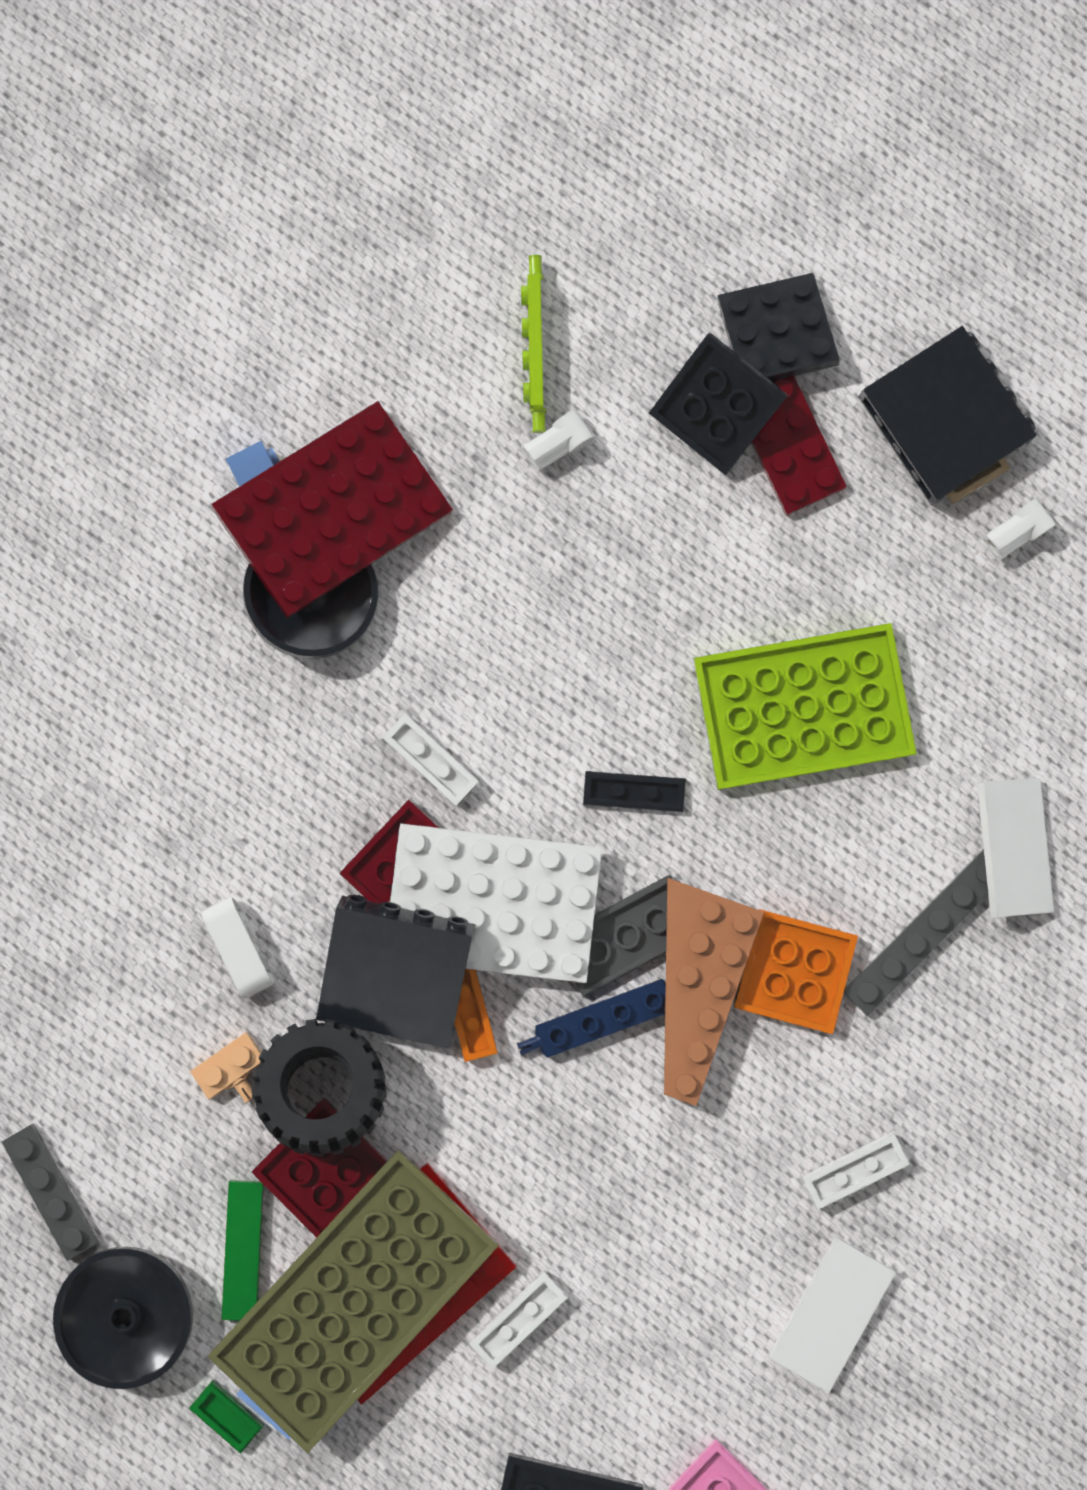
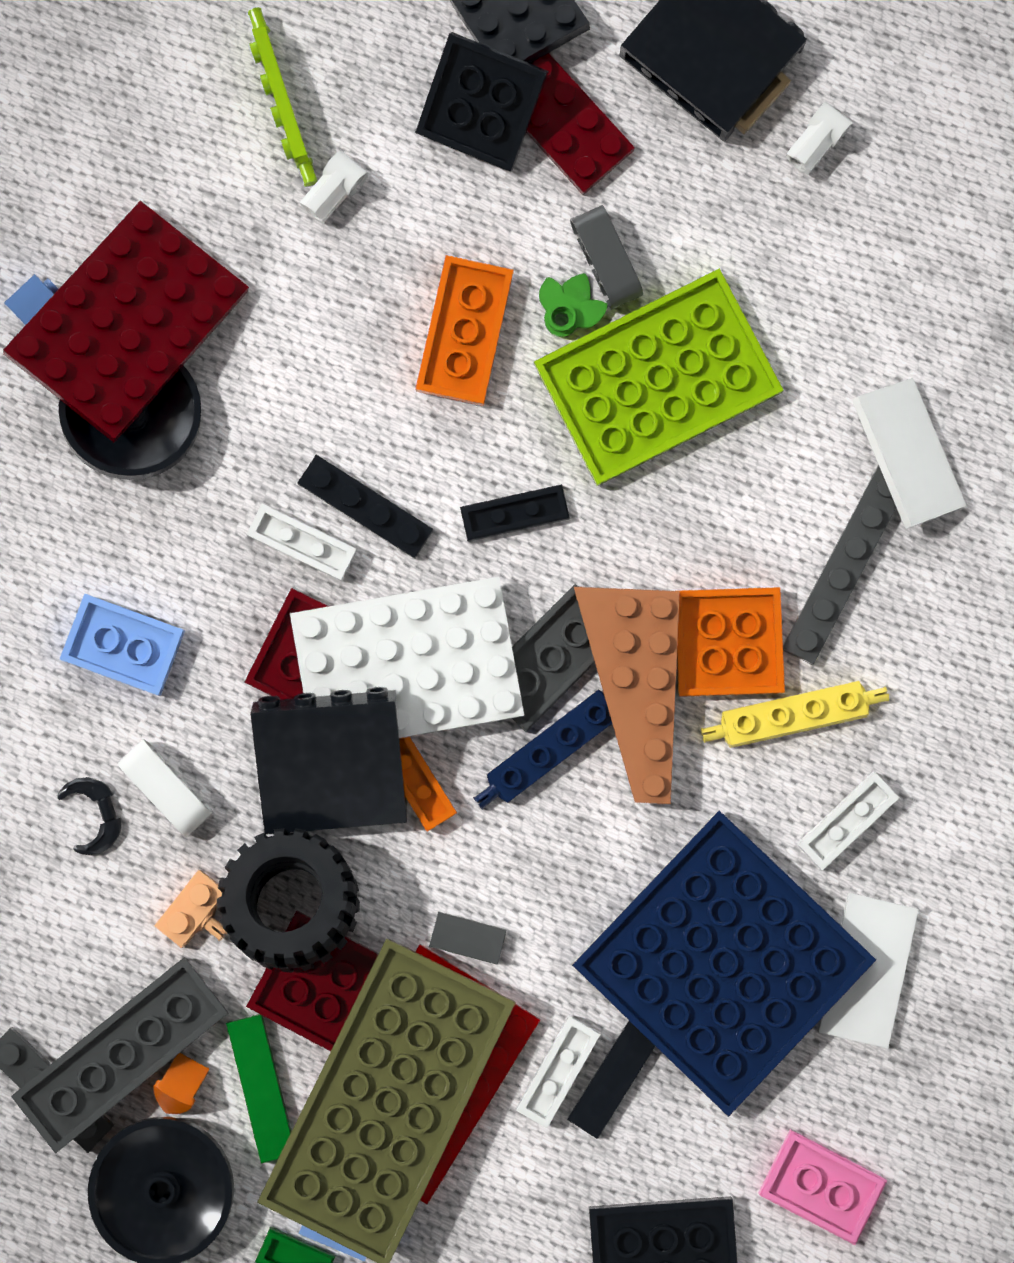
camera: 20 degrees left, 0 degrees up
(123, 1181) = (119, 1055): none -> dark grey plate
(169, 1225) = (179, 1085): none -> orange tile
(174, 931) = (100, 792): none -> black piece
(238, 804) = (122, 644): none -> light blue plate
(473, 1170) = (467, 938): none -> dark grey tile
(498, 744) = (365, 506): none -> black plate
(576, 1333) = (611, 1081): none -> black tile
(638, 609) = (464, 330): none -> orange plate
(701, 1267) = (724, 963): none -> dark blue plate
(746, 611) = (572, 301): none -> bright green plate
(791, 579) = (606, 253): none -> dark grey beam
(836, 1056) = (794, 714): none -> light yellow plate

